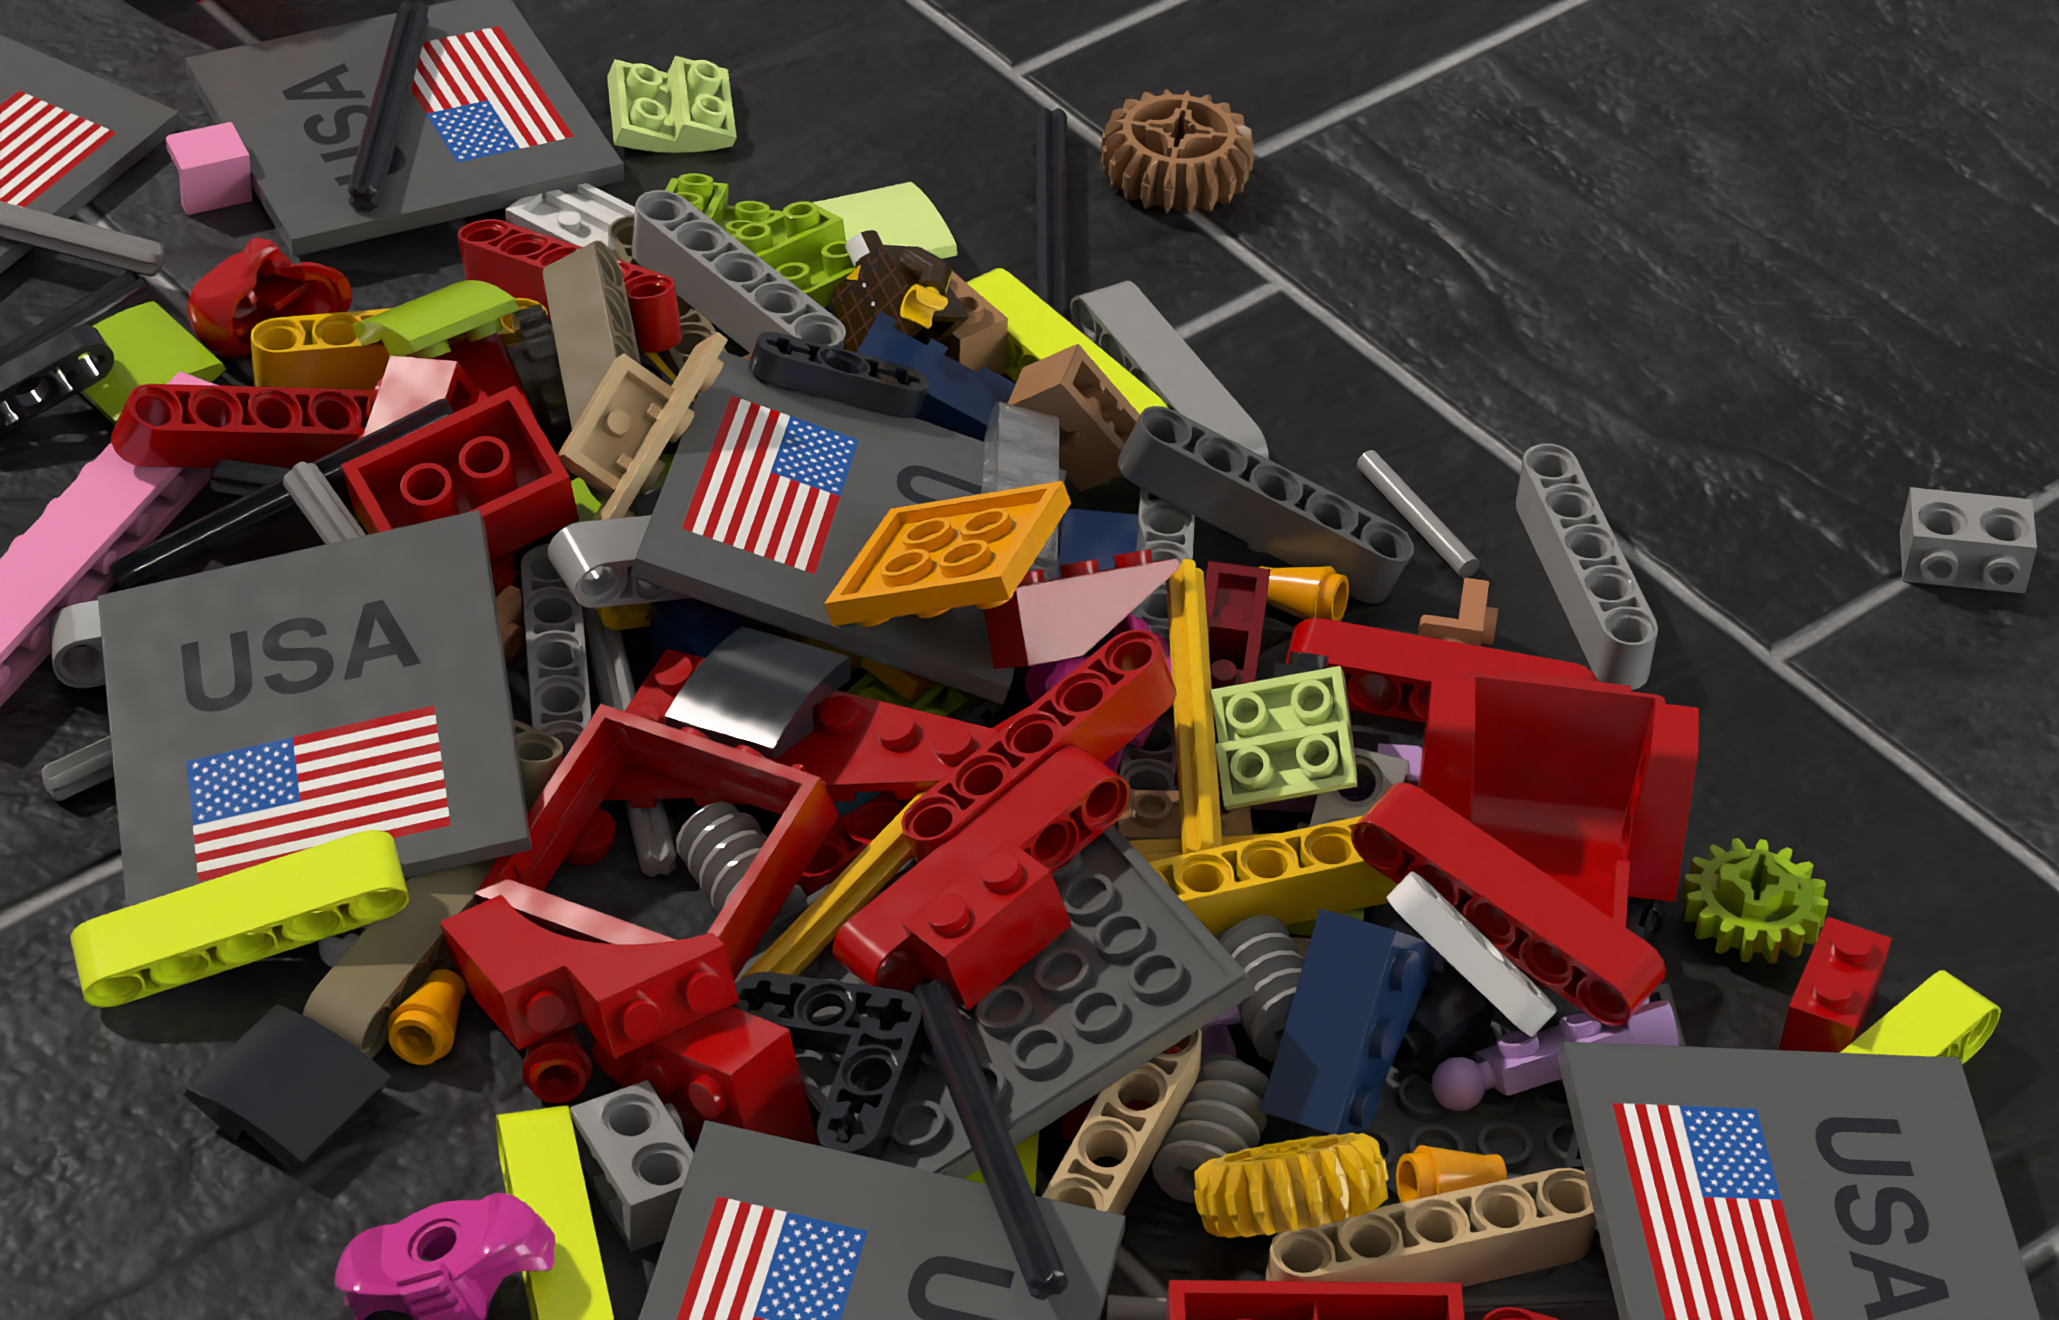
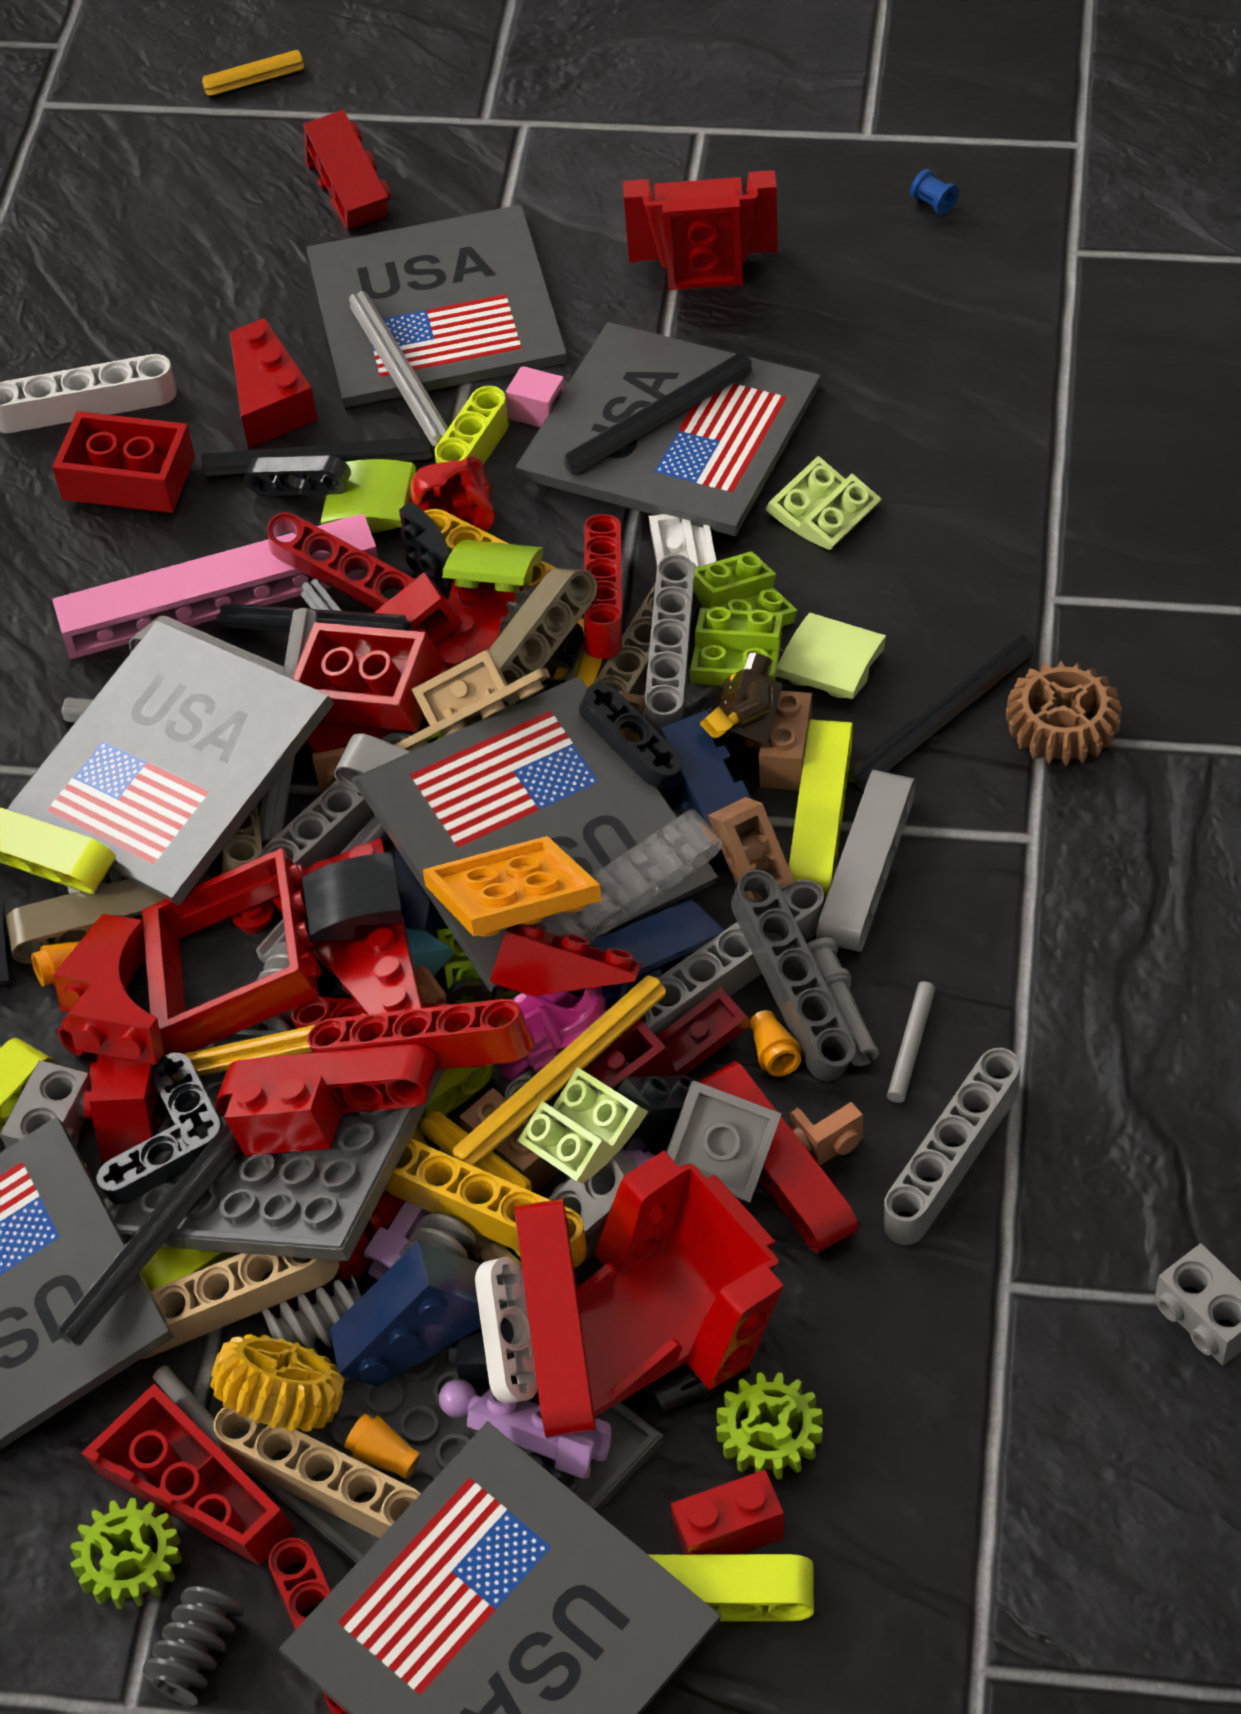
camera: 55 degrees right, 10 degrees up
(185, 229) = (476, 427): none -> neon yellow beam
(320, 349) = (425, 546): none -> black slope
(1393, 670) = (723, 1137): none -> light grey hinge

